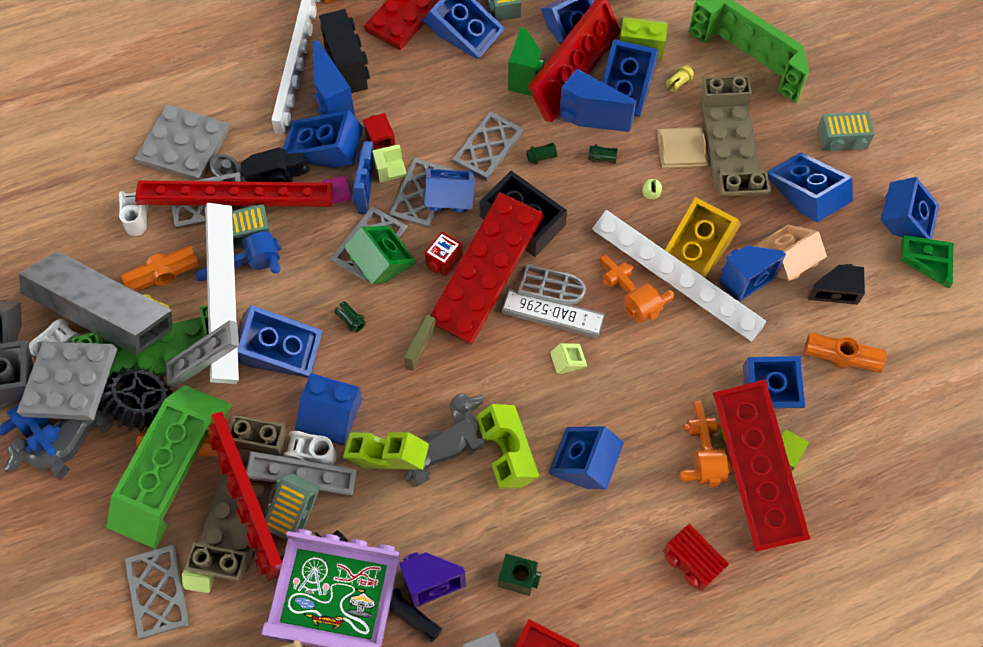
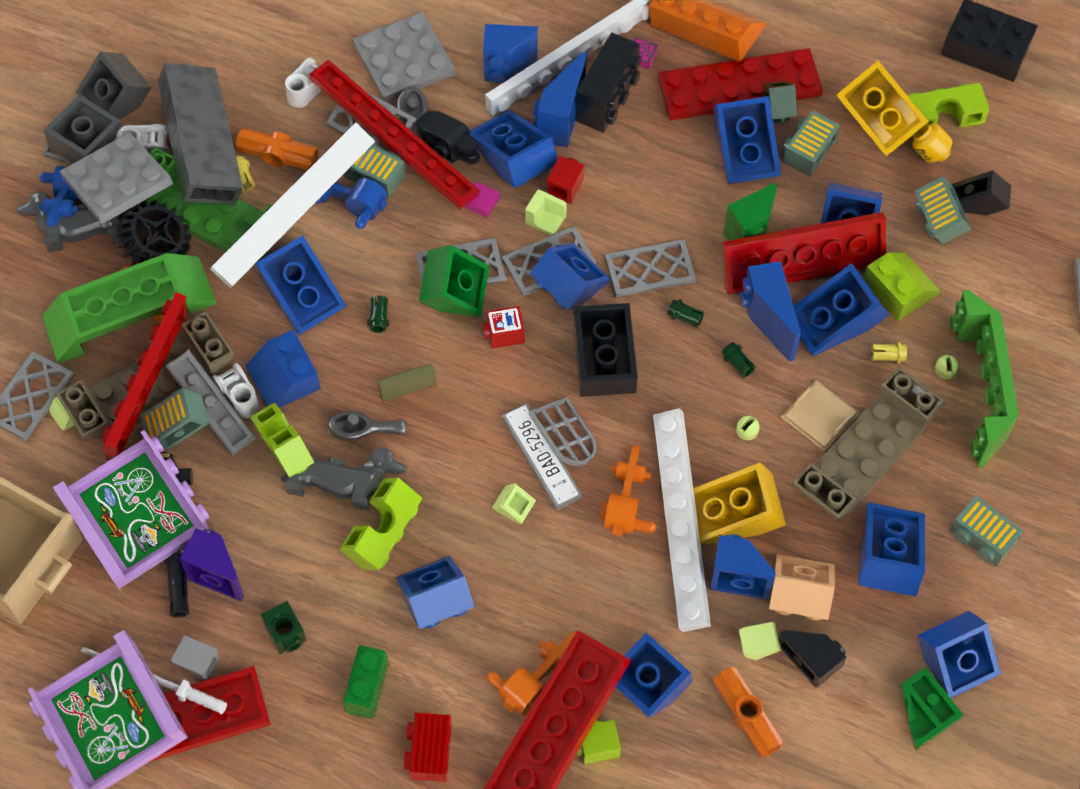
camera: 45 degrees right, 0 degrees up
(202, 354) = (224, 241): light grey tile -> none
(255, 83) = (508, 50): none -> blue slope
(363, 178) = (508, 207): blue wing -> none
(417, 400) = (356, 425): none -> flat silver piece
(486, 267) = (520, 367): red plate -> none
(610, 556) = (365, 681): none -> green brick
(718, 60) = (941, 367): none -> yellowish green hinge
(803, 303) = (759, 640): none -> yellowish green slope

